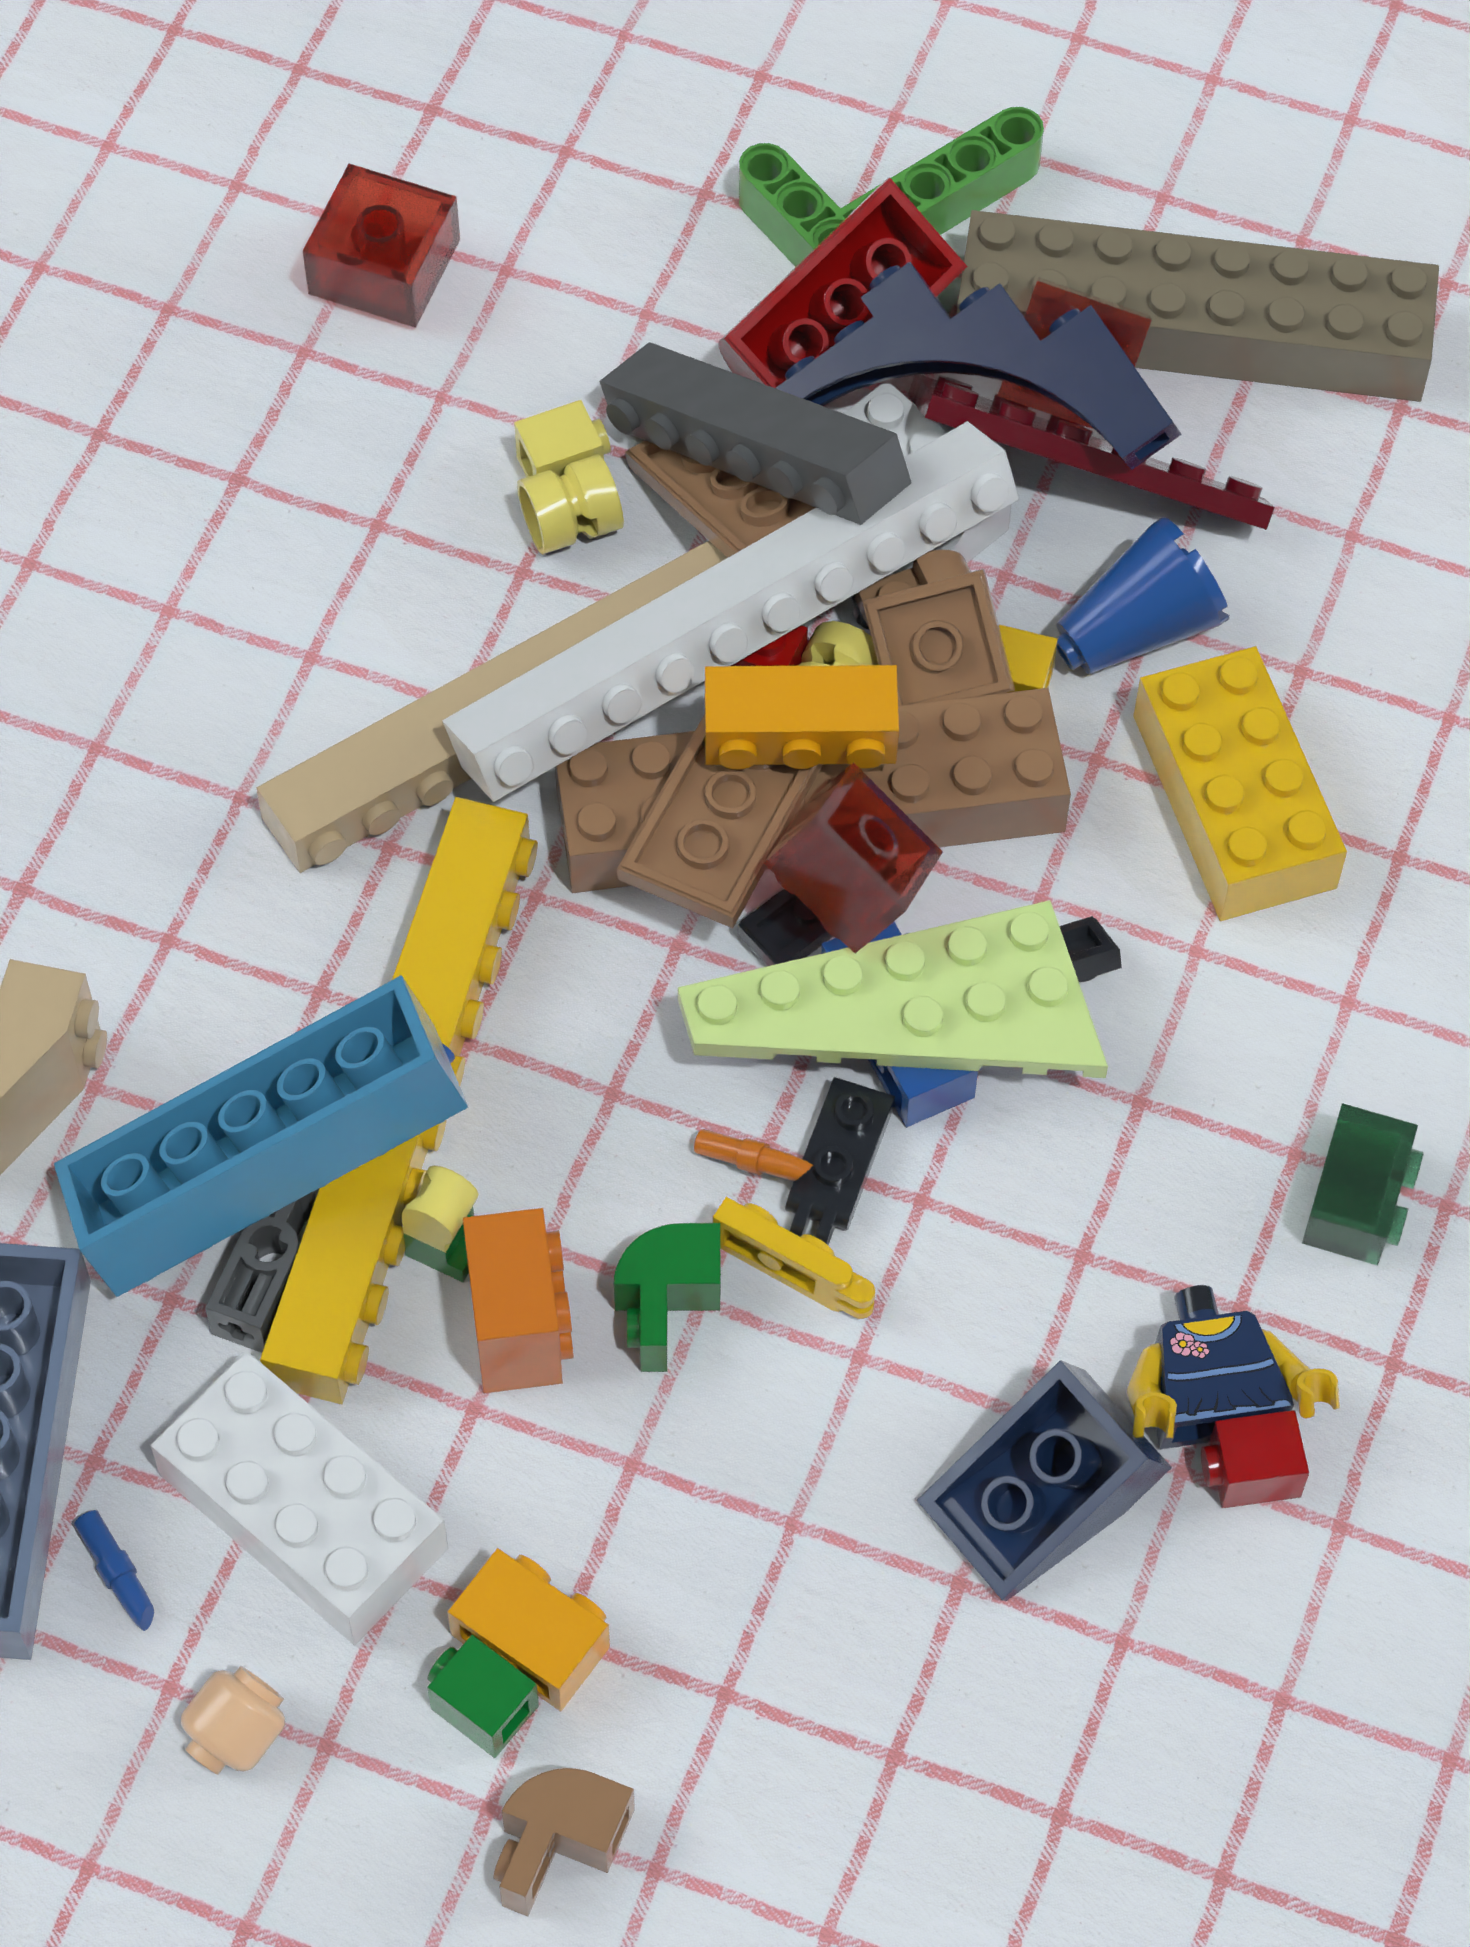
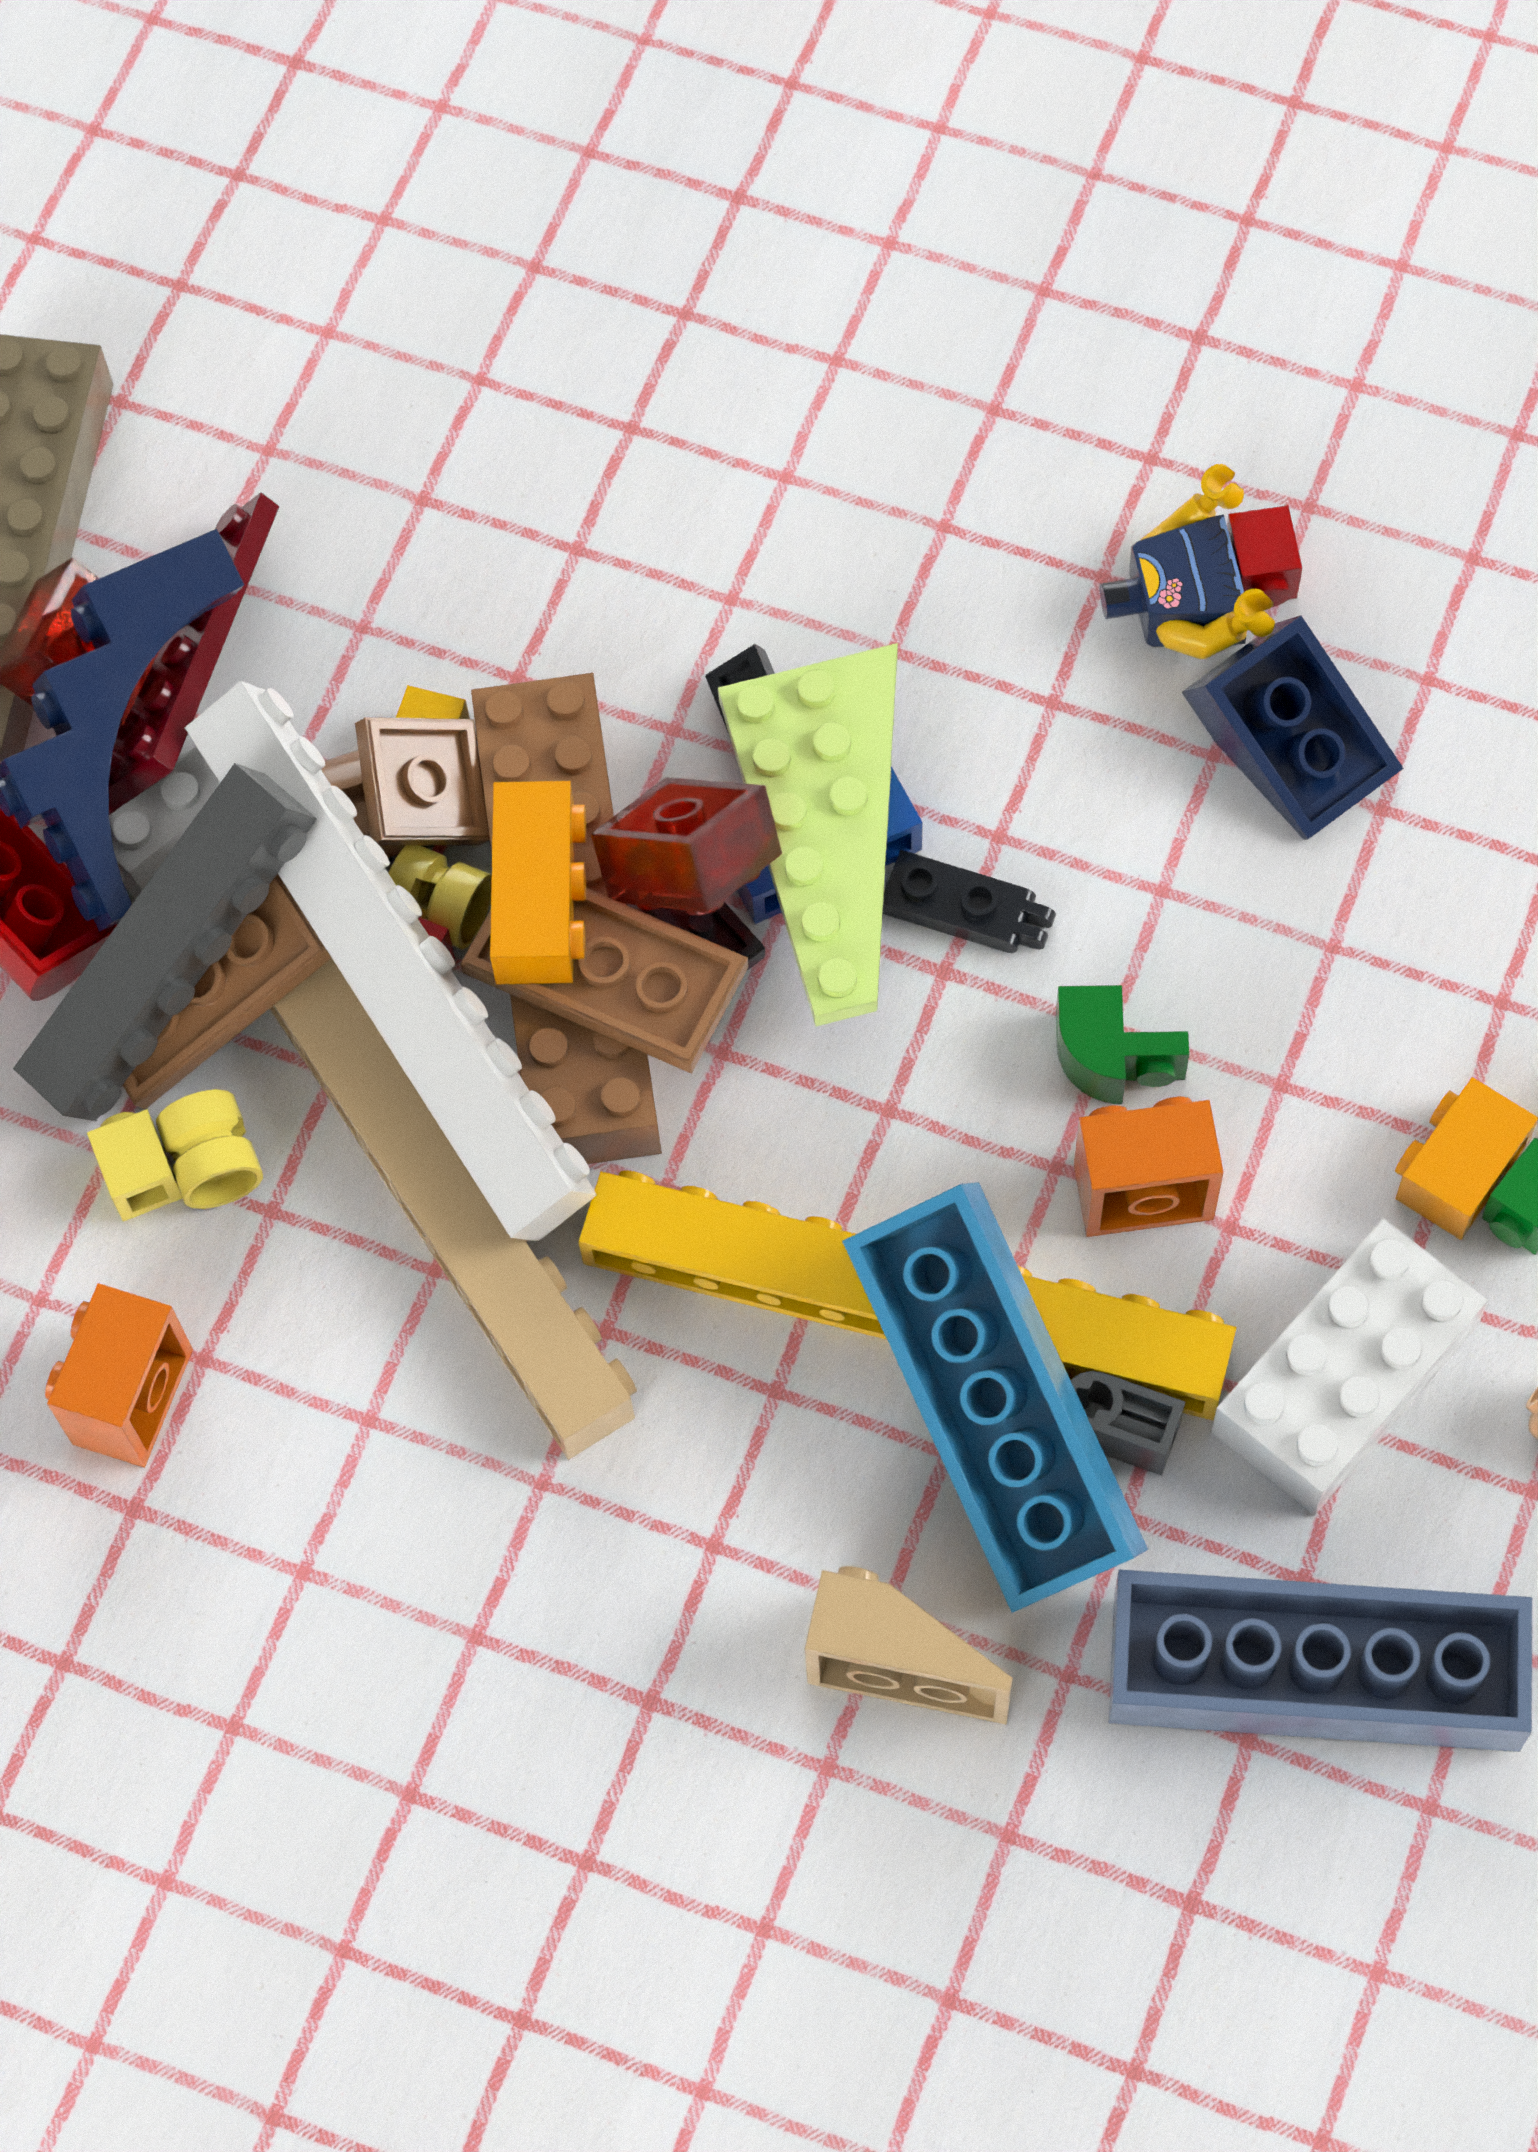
camera: 85 degrees left, 5 degrees up
(115, 1568) = (1418, 1546): blue piece -> none
(340, 437) = (118, 1374): none -> orange brick
(435, 1222) = (1057, 1238): light yellow leg -> none
(750, 1155) = (967, 973): orange piece -> none
(793, 1260) = (1080, 930): yellow hinge -> none
(1142, 603) = (360, 612): blue cone -> none
(1239, 783) = (565, 543): yellow brick -> none
(1361, 1185) = (988, 464): clear green brick -> none

